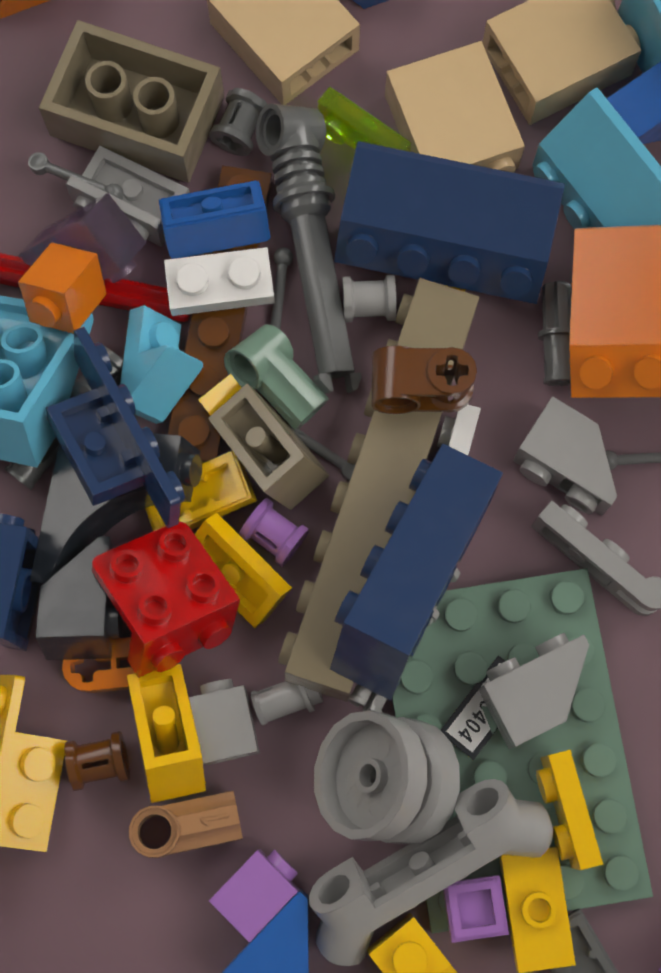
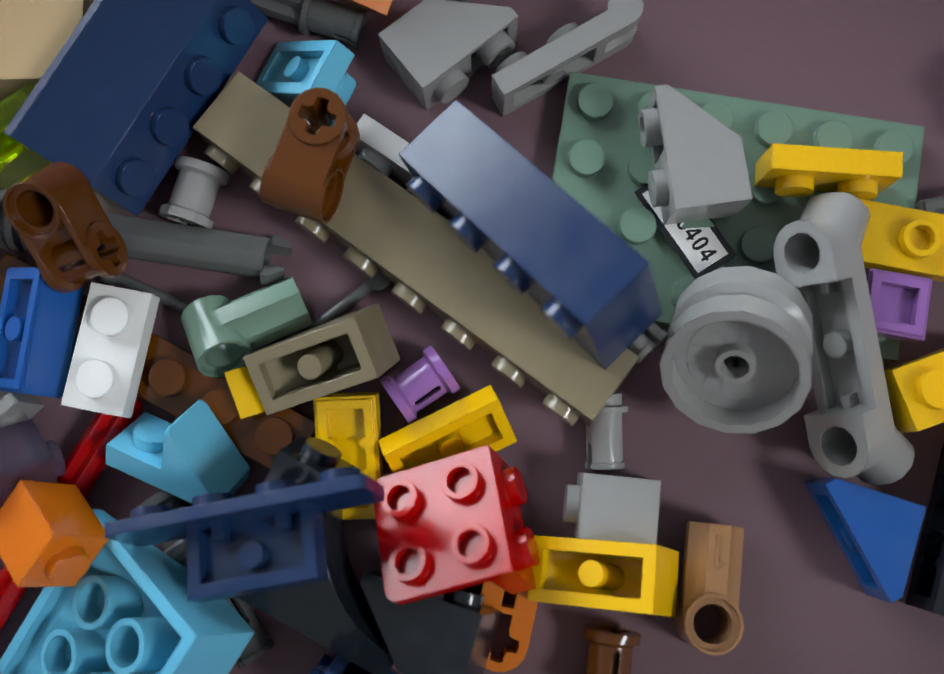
camera: 65 degrees left, 5 degrees up
(256, 892) = (806, 532): medium lavender brick -> none
(301, 213) = (63, 226): none -> reddish brown piece
(499, 352) = (307, 65): none -> medium azure slope

